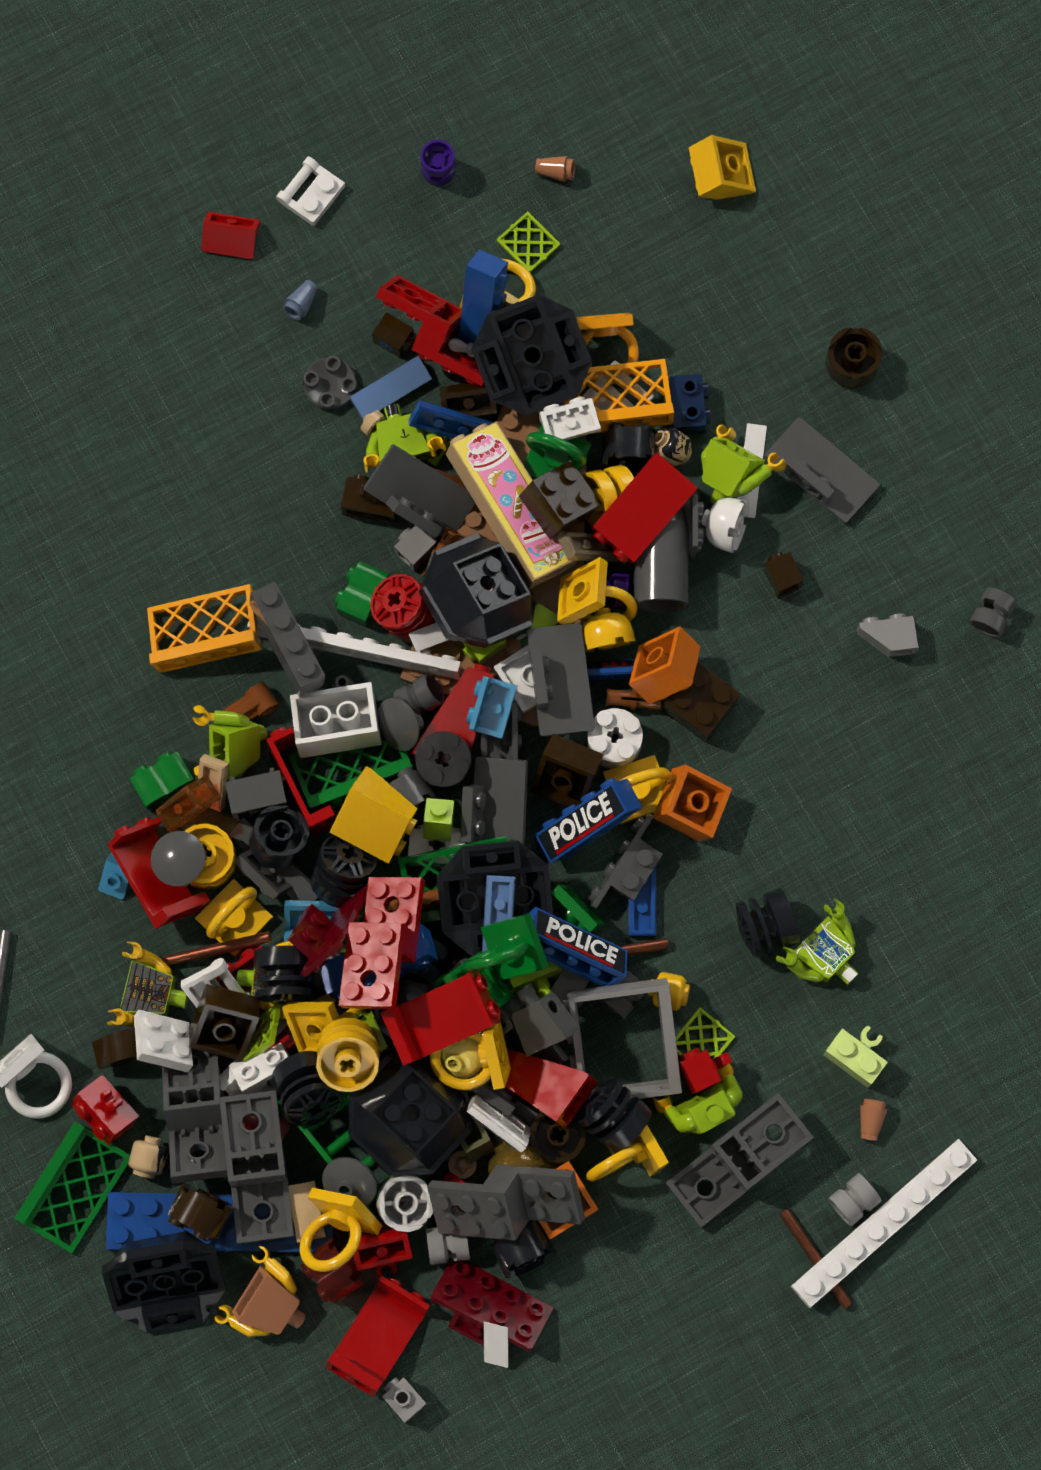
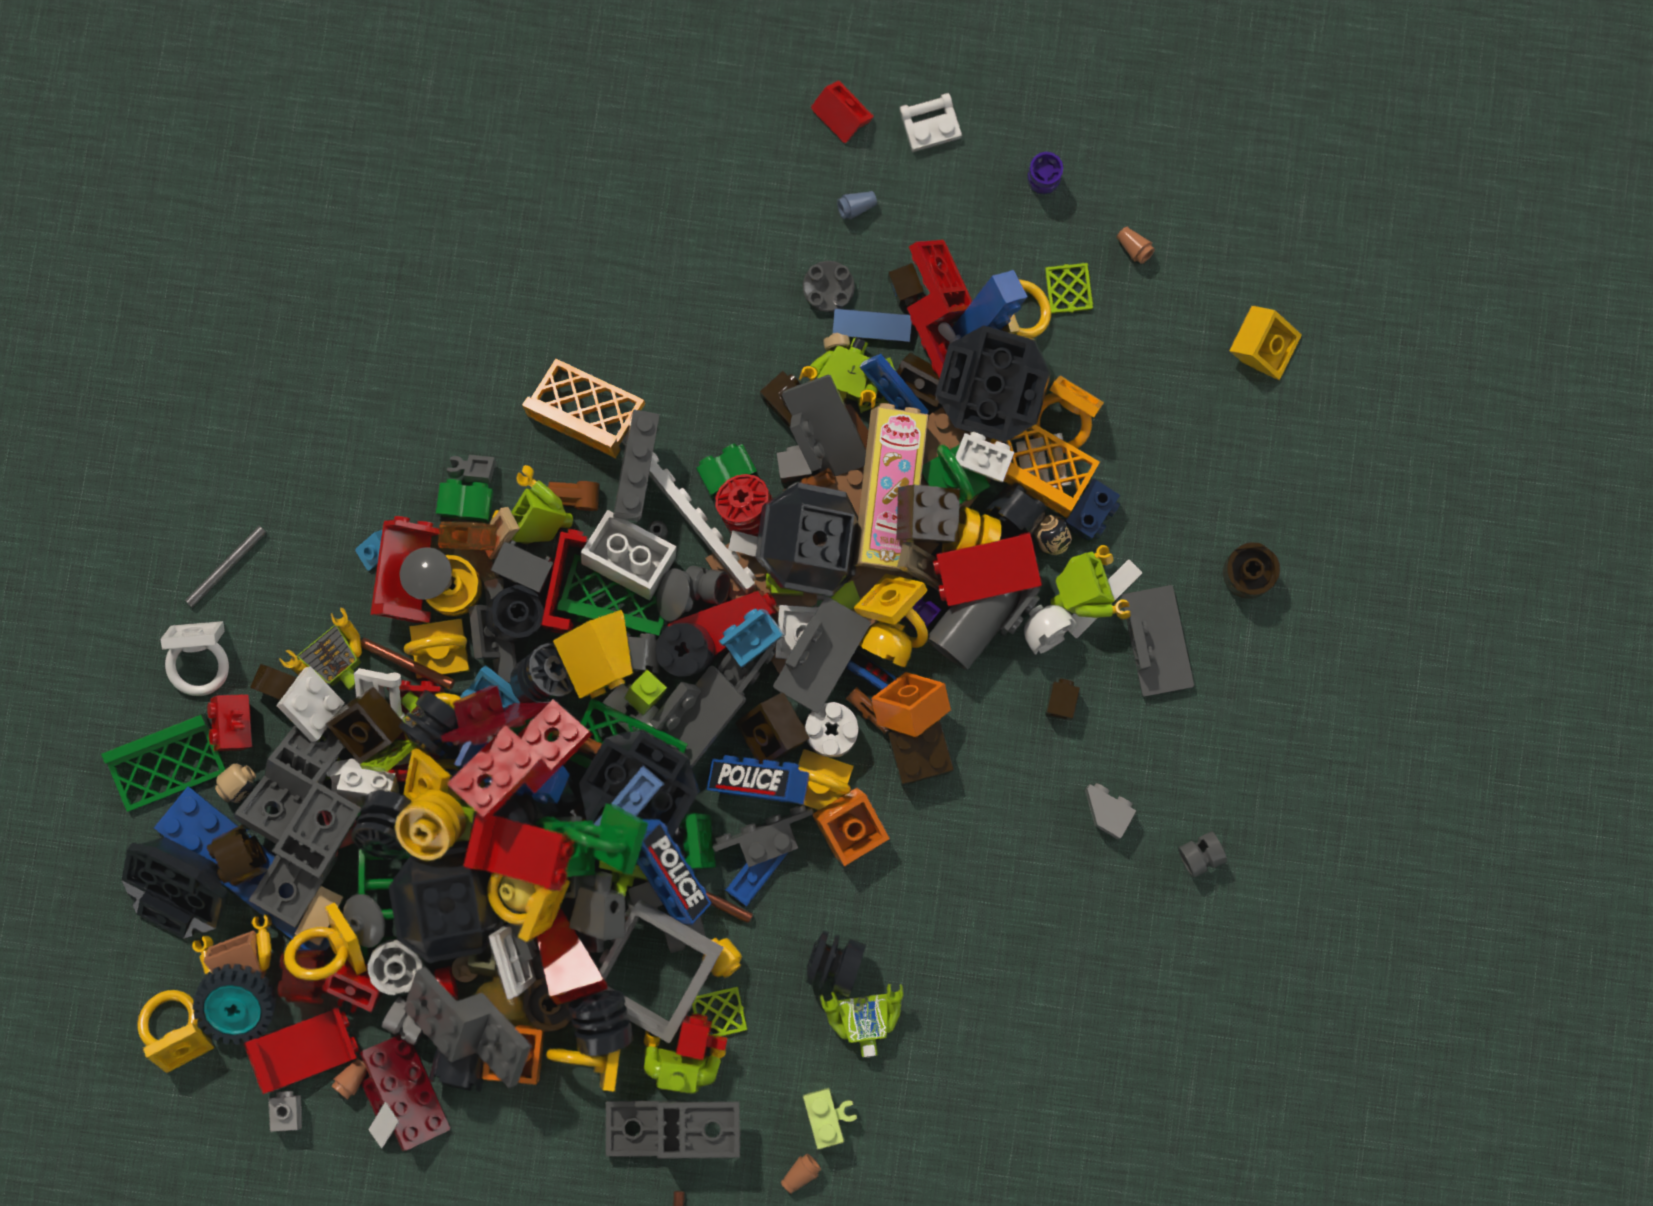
camera: 35 degrees right, 5 degrees up
(149, 748) = (474, 470): none -> dark grey plate
(269, 1412) = (178, 1045): none -> yellow tile
(310, 1343) = (234, 1003): none -> wheel
(437, 1329) = (350, 1079): none -> nougat cone

